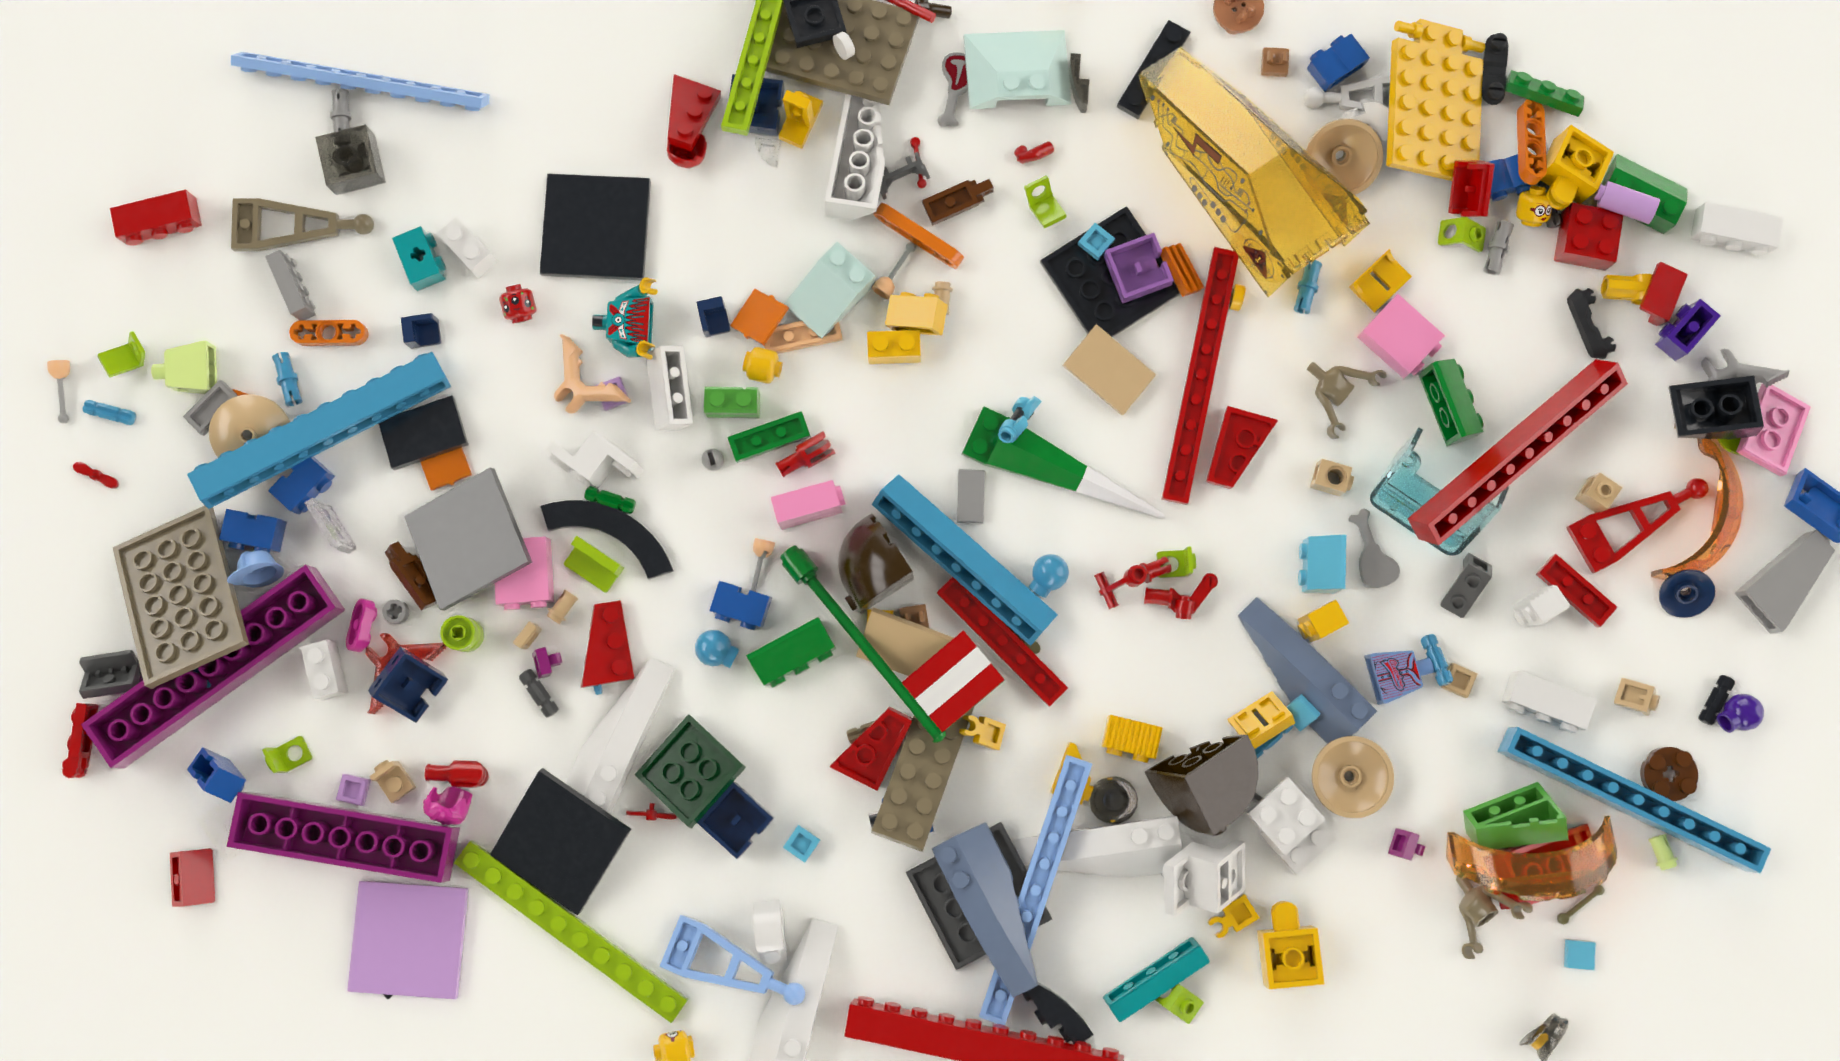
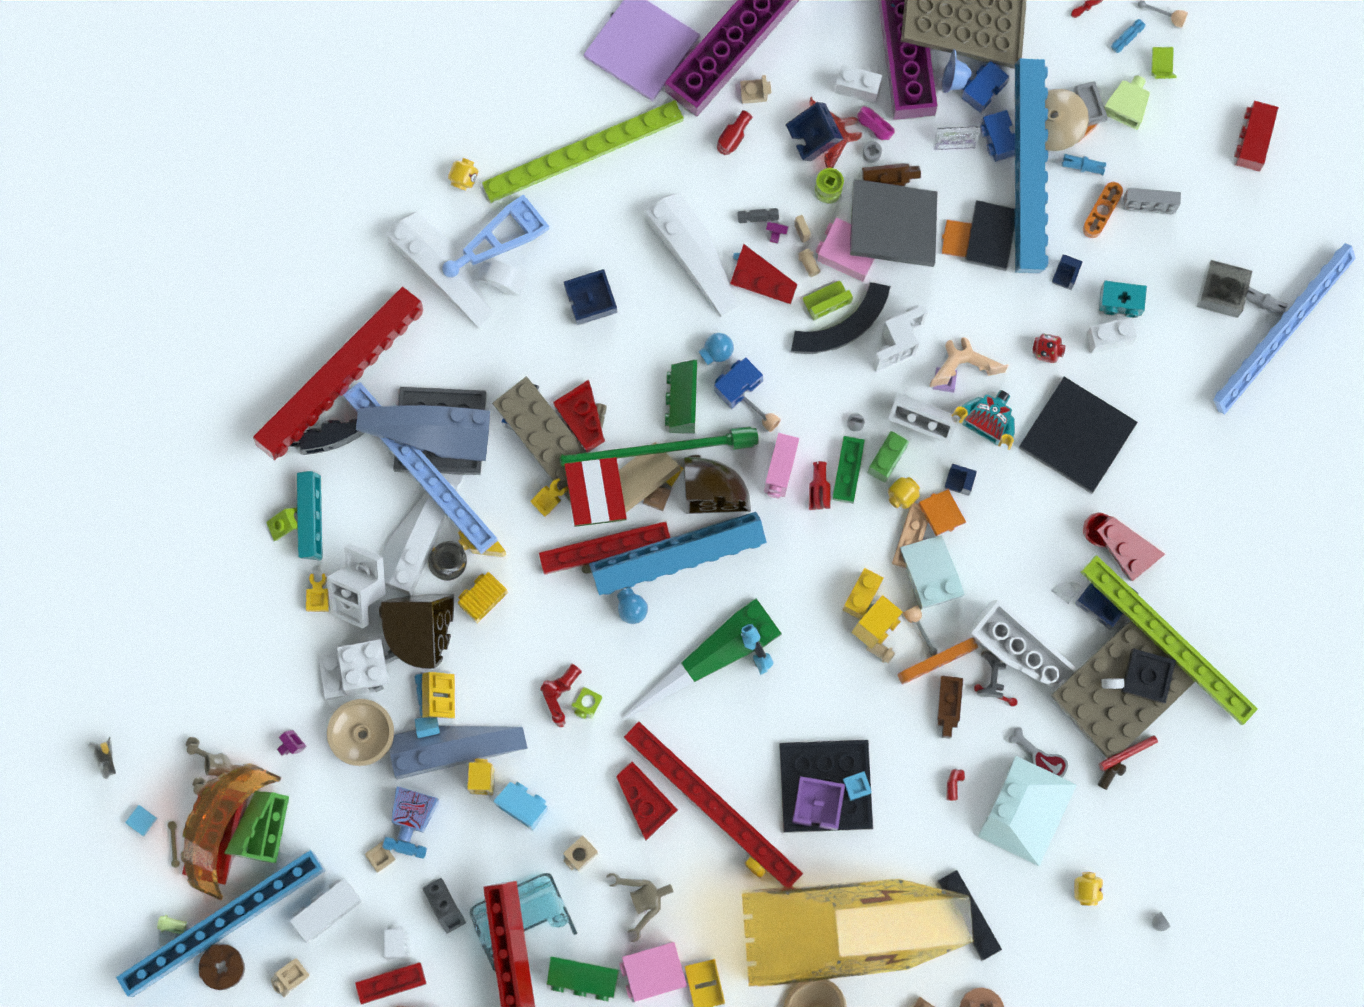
camera: 115 degrees right, 5 degrees down
(247, 224) = (1214, 194): dark tan plate -> none
(278, 759) = (813, 24): lime bracket -> none
(353, 789) = (764, 62): lavender tile -> none
(449, 806) = (715, 115): dark pink hair -> none
(560, 841) = (646, 174): black tile -> none
(610, 499) = (867, 336): green axle -> none
(652, 814) = (628, 245): red piece -> none
(690, 771) = (642, 284): dark green plate -> none
(801, 115) = (1079, 626): yellow bracket -> none
(801, 843) = (548, 332): medium azure plate -> none
(970, 496) = (721, 587): light grey tile -> none
(1044, 206) = (908, 767): lime bracket -> none
(1078, 86) = (983, 846): clear smoke slope -> none
(1109, 370) = (755, 739): tan tile -> none
(1132, 577) = (593, 664): red pin -> none
(1182, 270) = (800, 842): orange tile -> none
(1289, 951) = (271, 616): yellow brick -> none
(1307, 287) = (731, 925): dark azure pin -> none
(1374, 566) = (497, 847): light grey piece -> none

